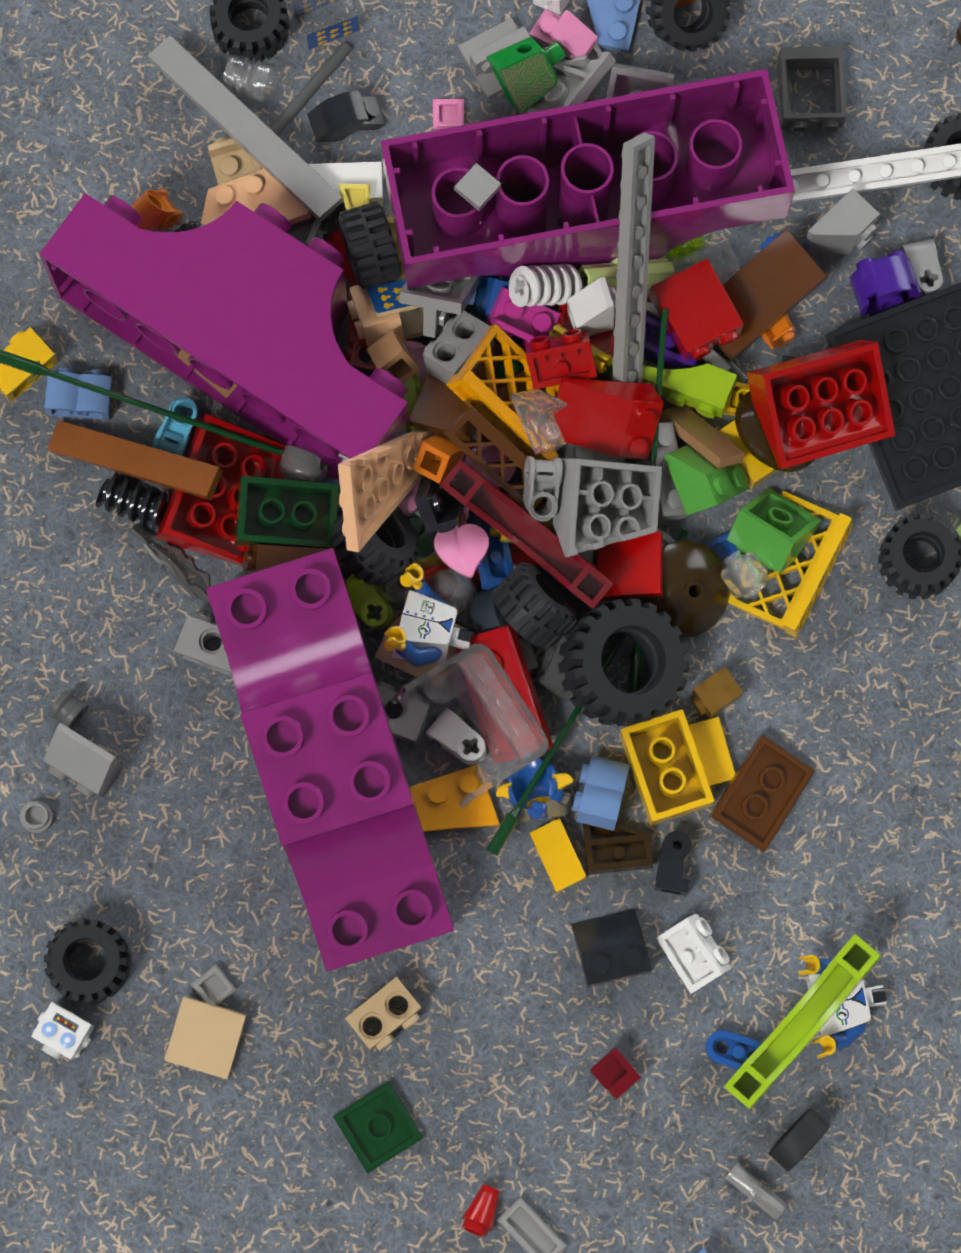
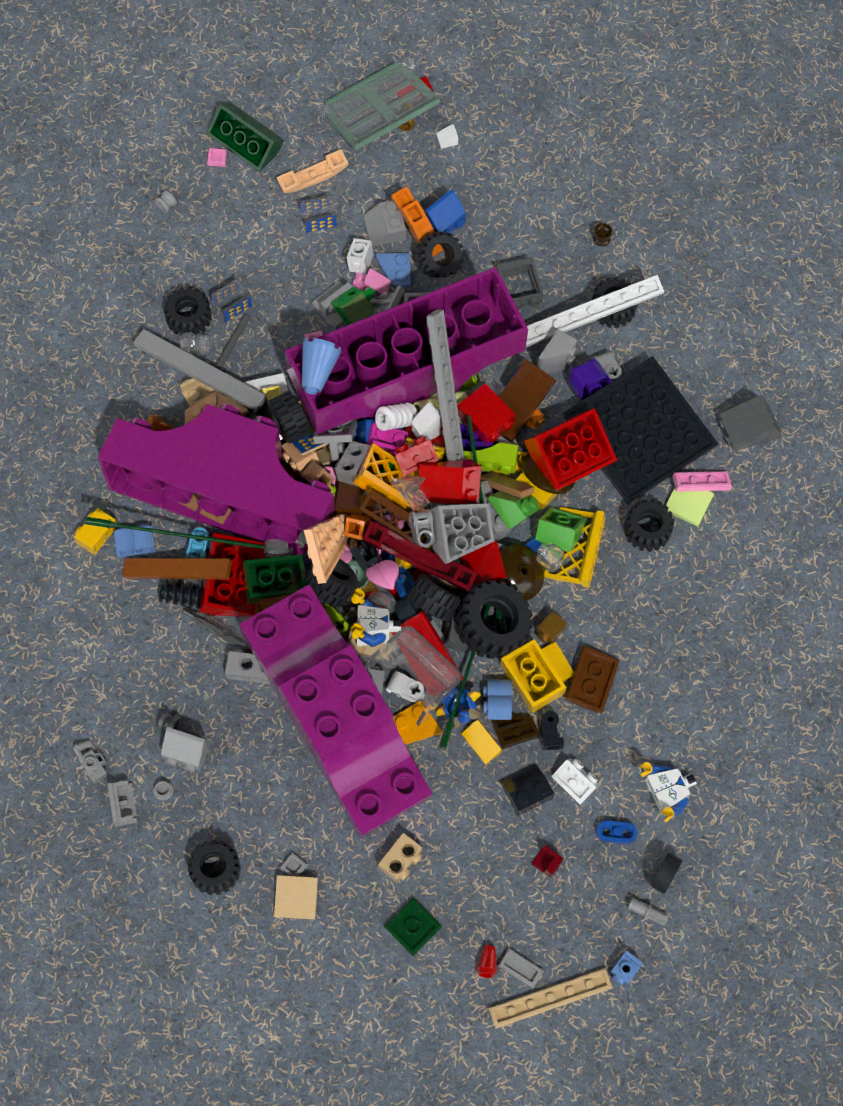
camera: 15 degrees left, 10 degrees down
(62, 1032) = (208, 914): white head -> none
(343, 114) = (254, 352): black brick -> none
(426, 181) = (317, 363): none -> medium blue cone
(477, 187) = (347, 363): light grey tile -> none
(803, 1022) = (651, 802): lime arch -> none

